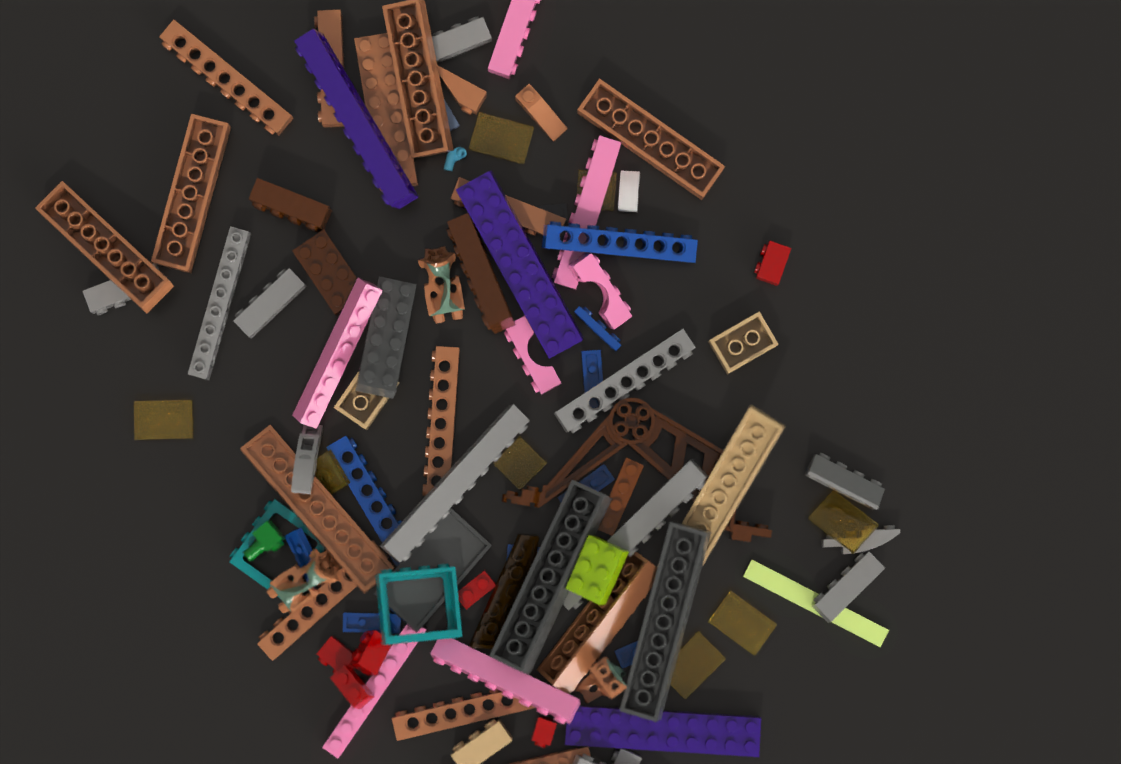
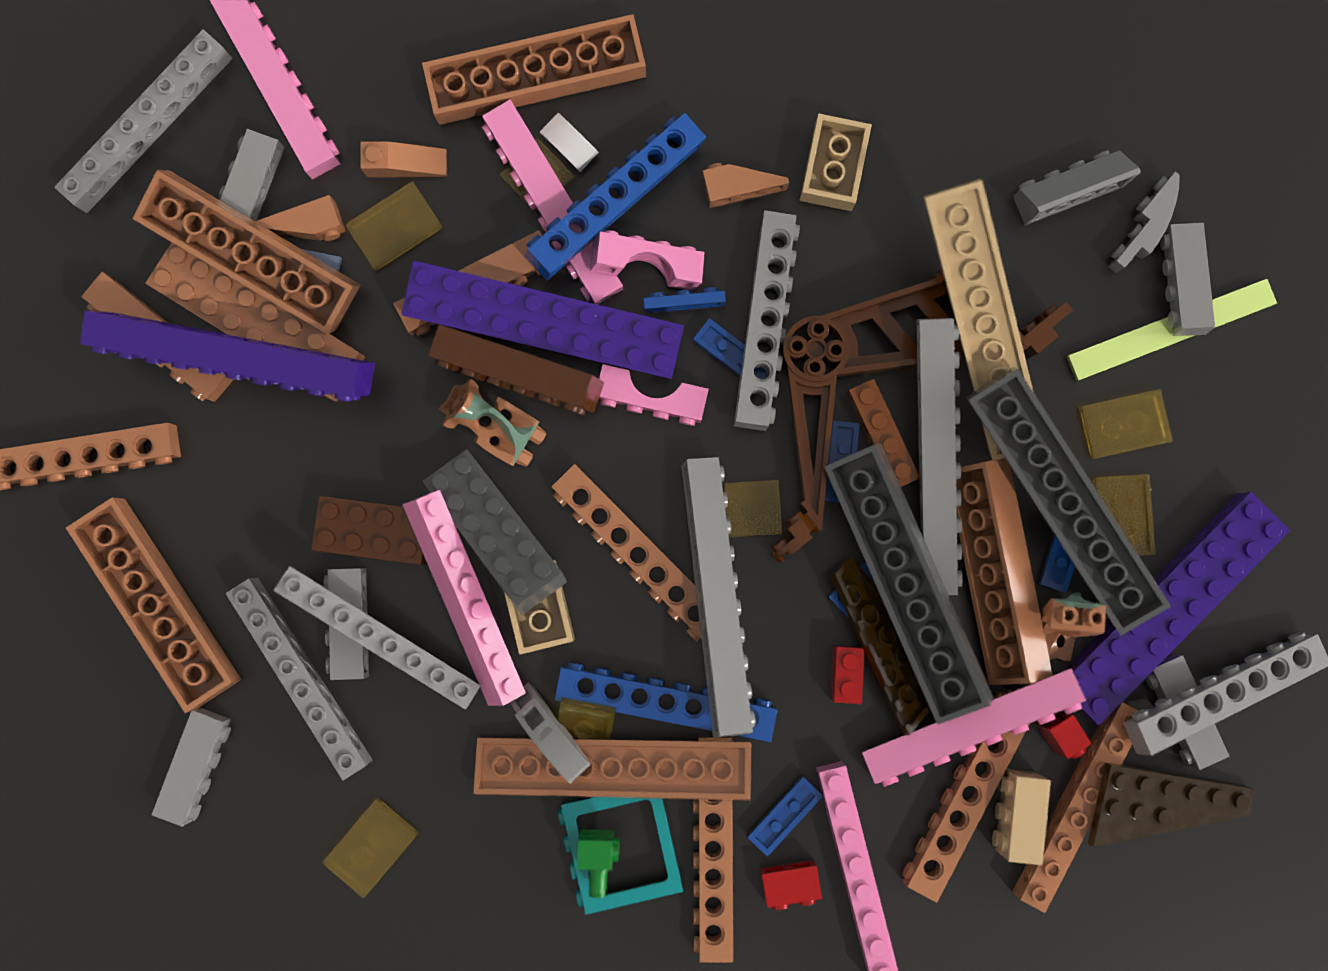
camera: 50 degrees left, 0 degrees up
(104, 247) = (124, 750): nougat brick -> none
(277, 326) = (377, 637): none -> light grey brick
(290, 204) = (260, 509): reddish brown brick -> none
(300, 548) = (654, 828): blue plate -> none
(320, 569) = (682, 828): nougat hips -> none
(352, 687) = (840, 903): red brick -> none
(370, 653) = (818, 847): red brick -> none
(448, 576) = (840, 711): teal piece -> none
(450, 543) = (790, 704): dark grey tile -> none
(454, 156) = (368, 291): medium azure arm -> none
(597, 570) = (947, 525): lime brick -> none
(684, 299) = (735, 183): none -> nougat slope
(773, 262) = (777, 60): red brick -> none
(843, 521) = (1116, 223): clear yellow tile -> none

